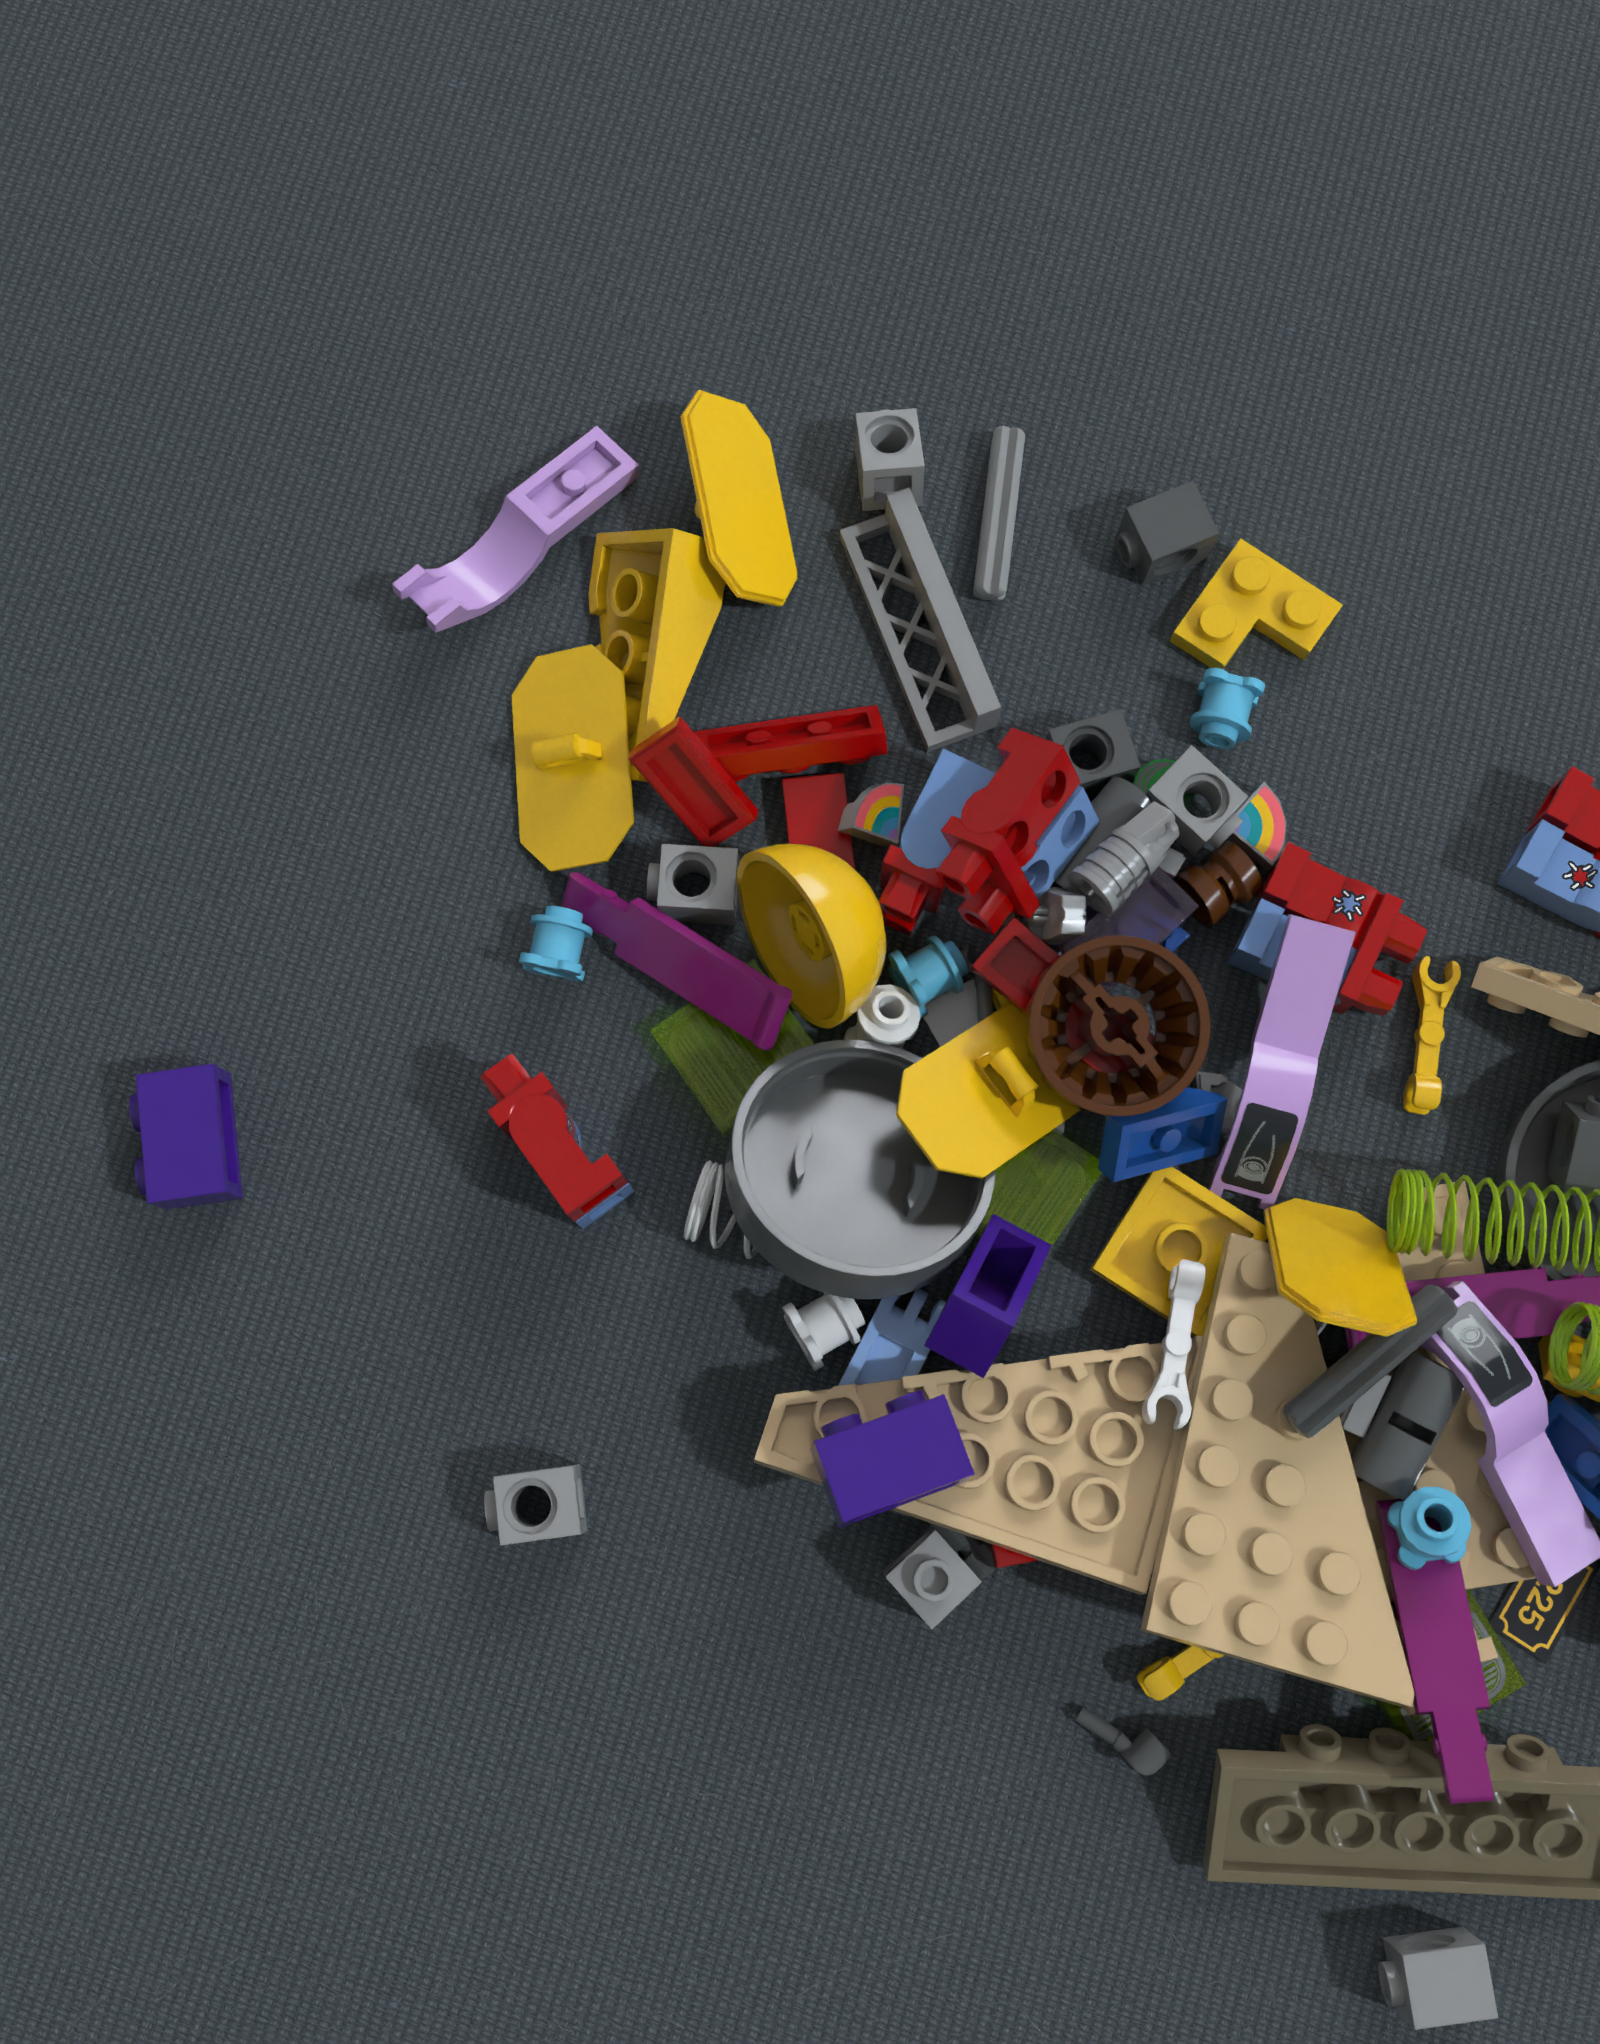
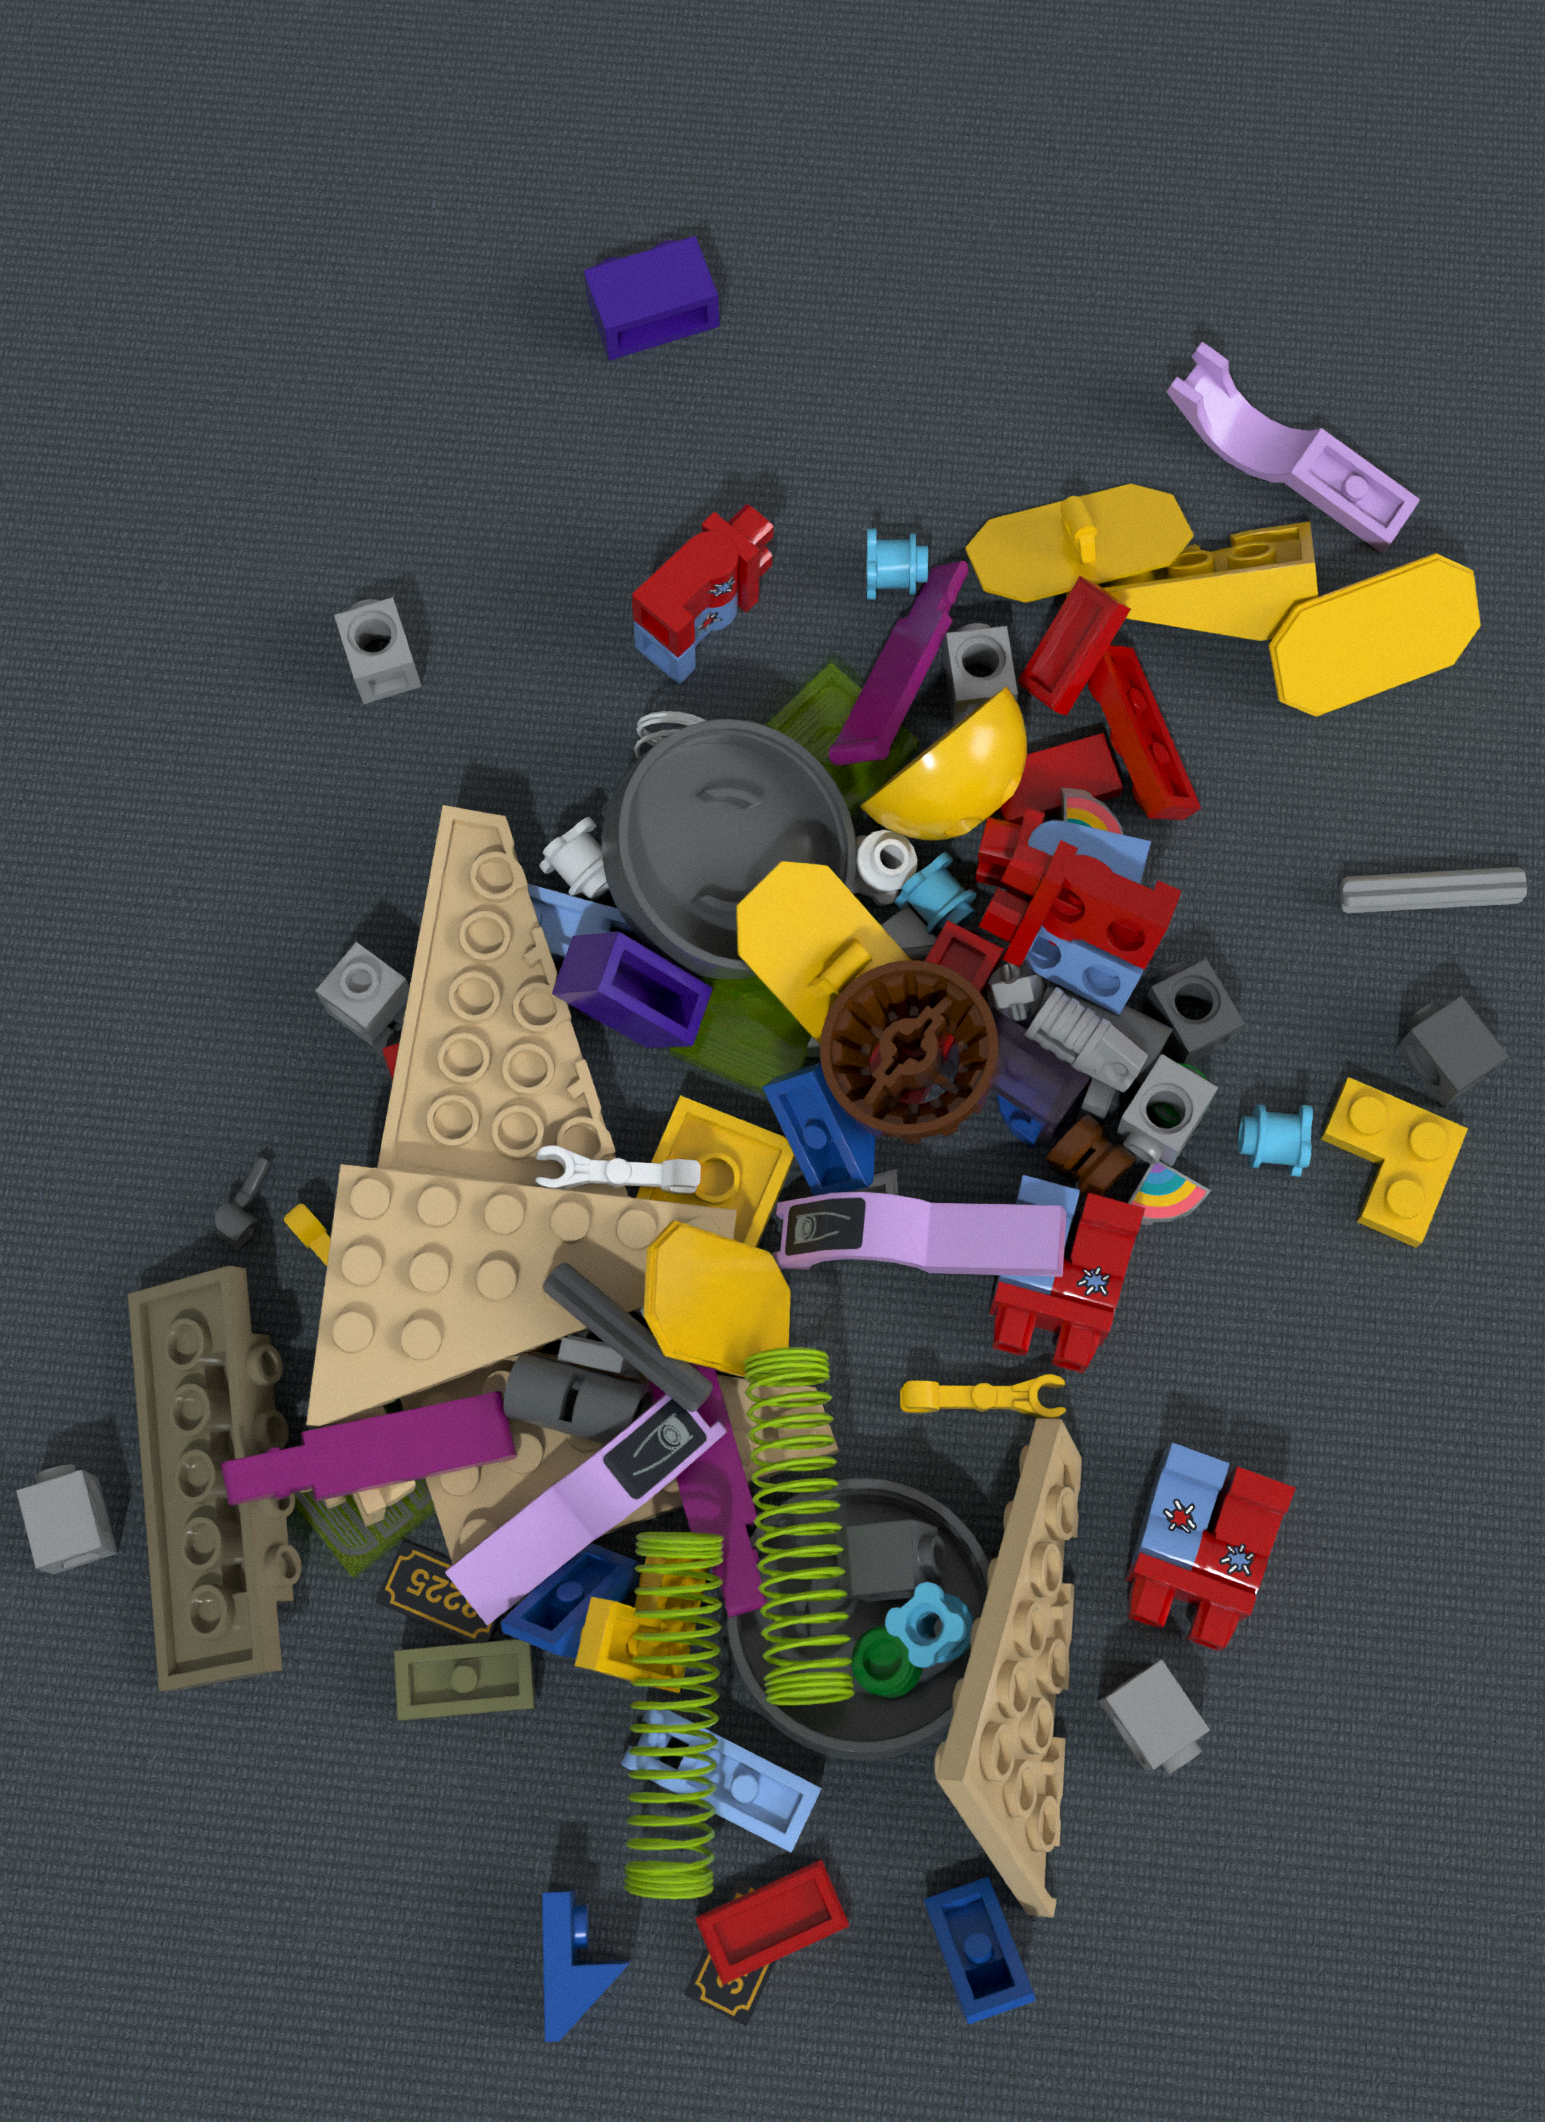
camera: 80 degrees right, 5 degrees down
(888, 456) = (1456, 767): light grey brick -> none
(890, 1458) = (459, 912): dark purple piece -> none
(941, 613) = (1300, 846): light grey fence -> none
(1417, 1540) = (474, 1443): medium azure brick -> none

